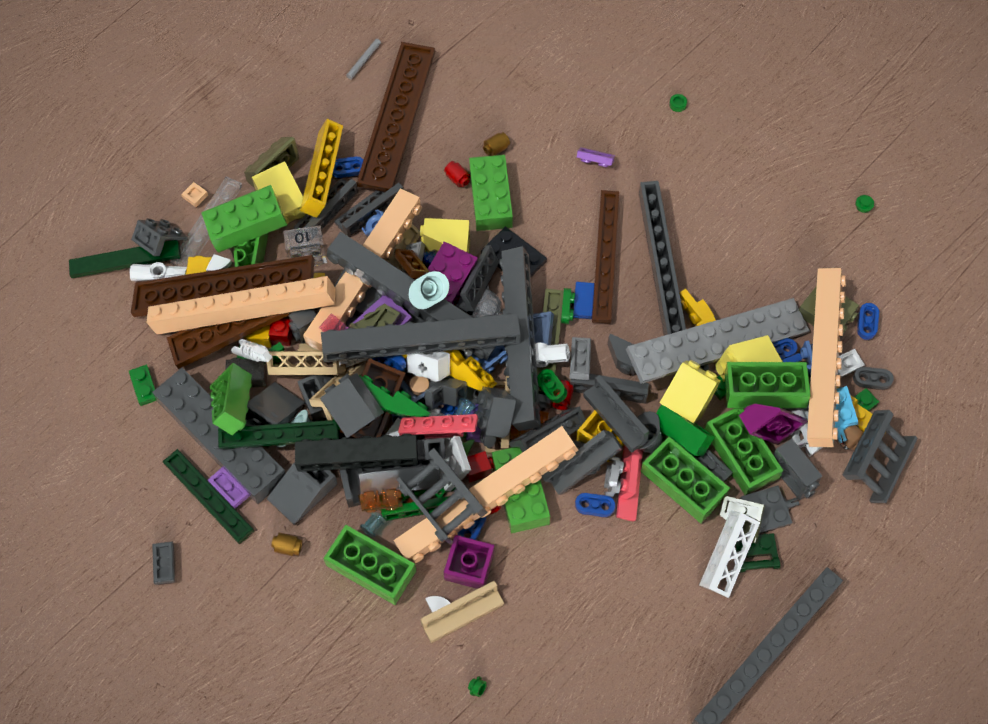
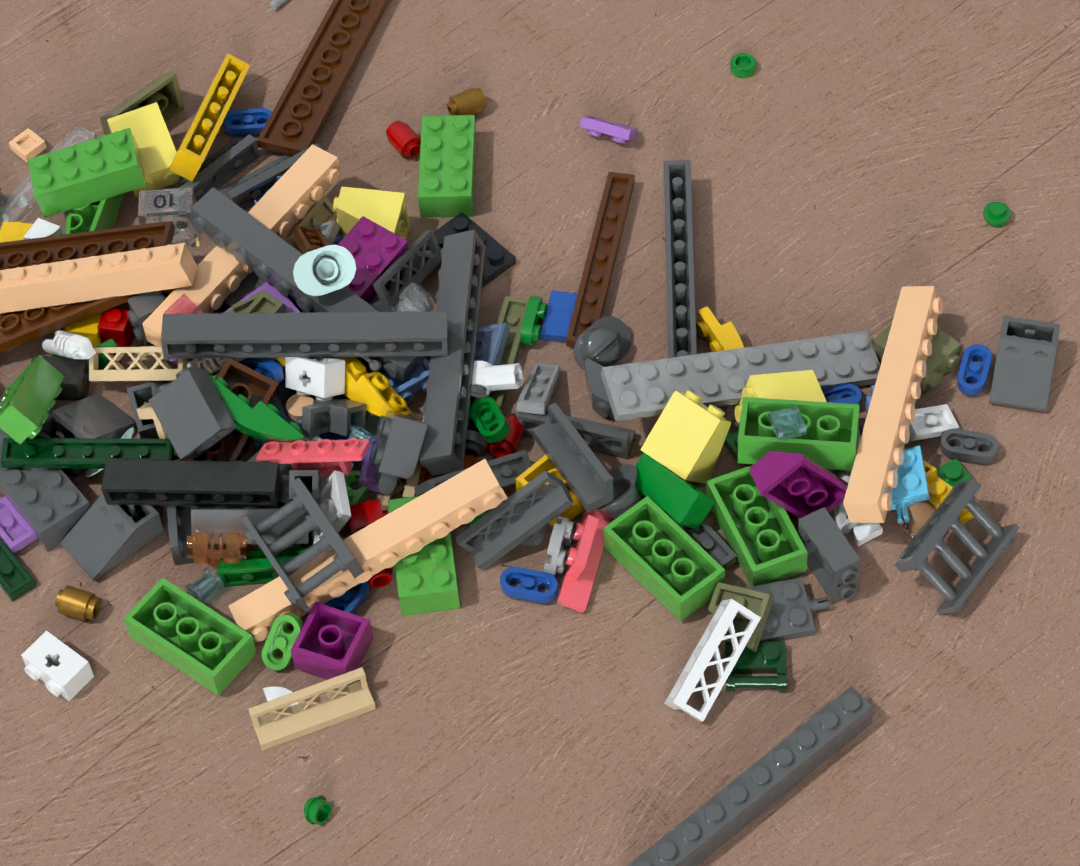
camera: 10 degrees right, 10 degrees down
(274, 584) = (57, 666): none -> white brick
(435, 562) = (281, 638): none -> bright green plate
(617, 319) = (603, 342): none -> dark grey piece
(762, 381) = (787, 423): none -> clear light blue plate
(902, 315) = (1024, 363): none -> dark grey slope

